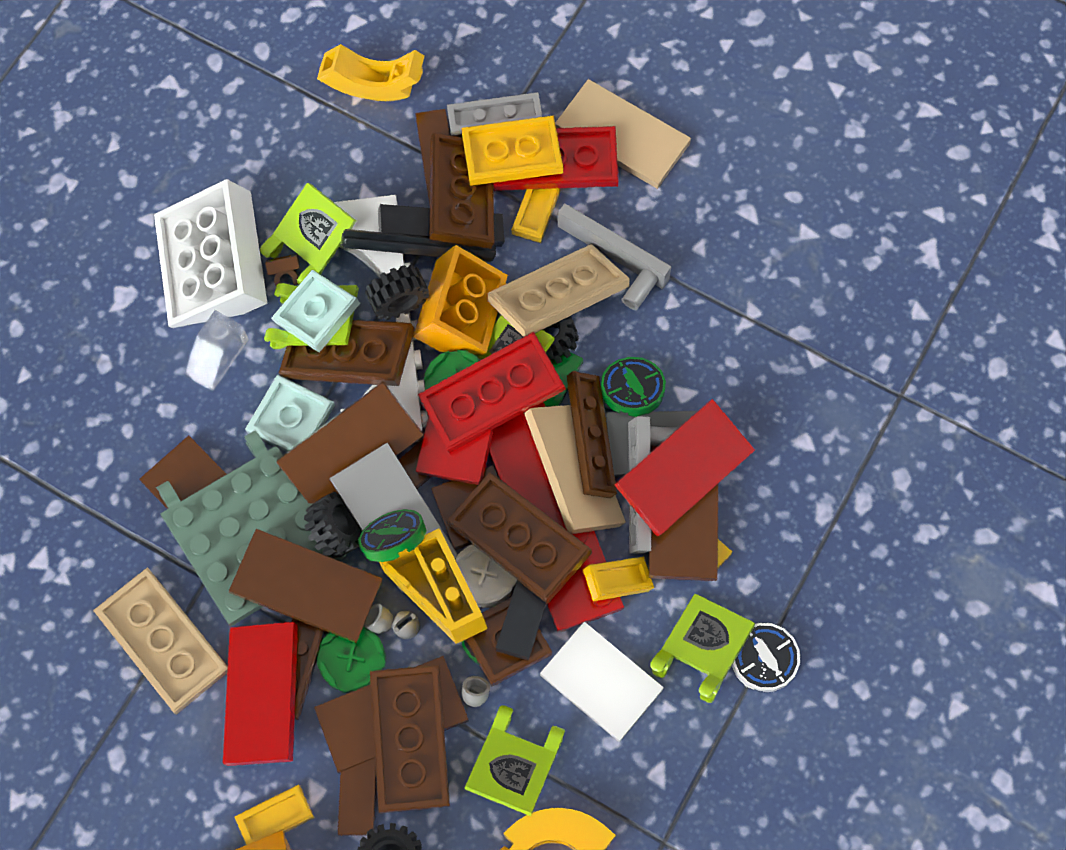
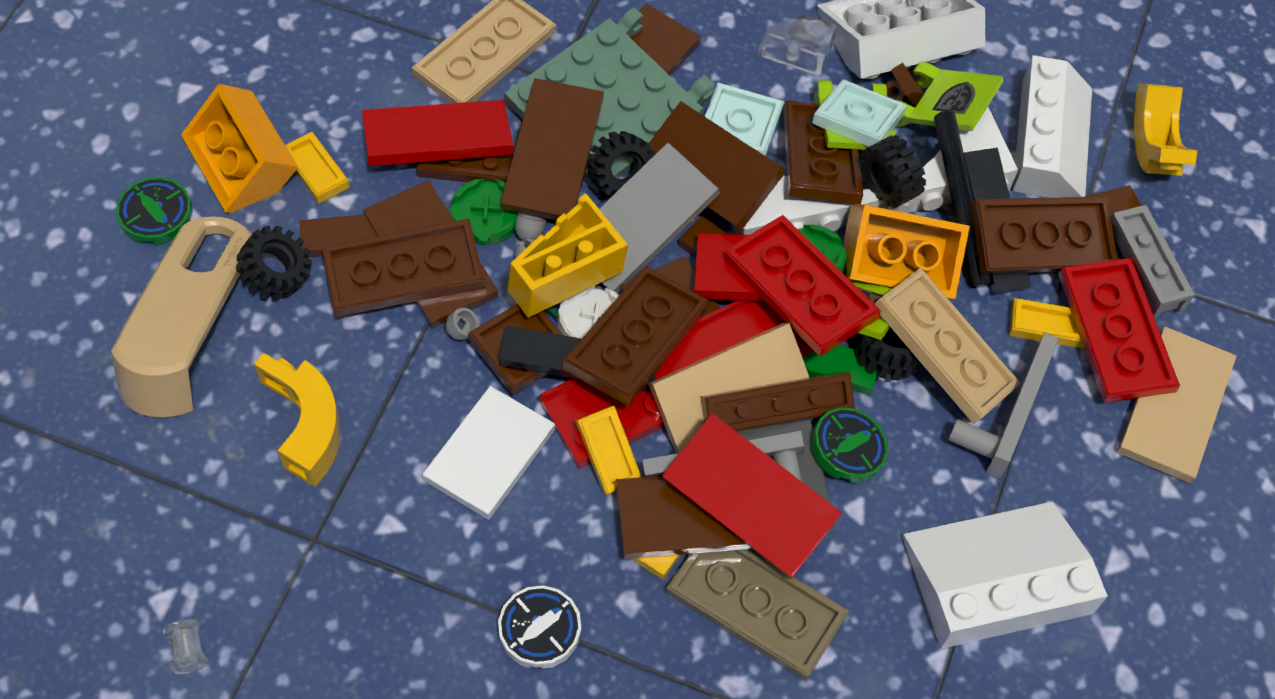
camera: 75 degrees right, 10 degrees down
(348, 159) = (1053, 130): none -> white slope
(392, 534) = (613, 204): tile -> none
(511, 767) = (380, 366): lime flag -> none
(512, 150) = (1109, 276): yellow tile -> none
(707, 640) = (547, 554): lime flag -> none
(754, 296) = (1003, 574): none -> white slope
(764, 482) = (760, 606): none -> dark tan tile

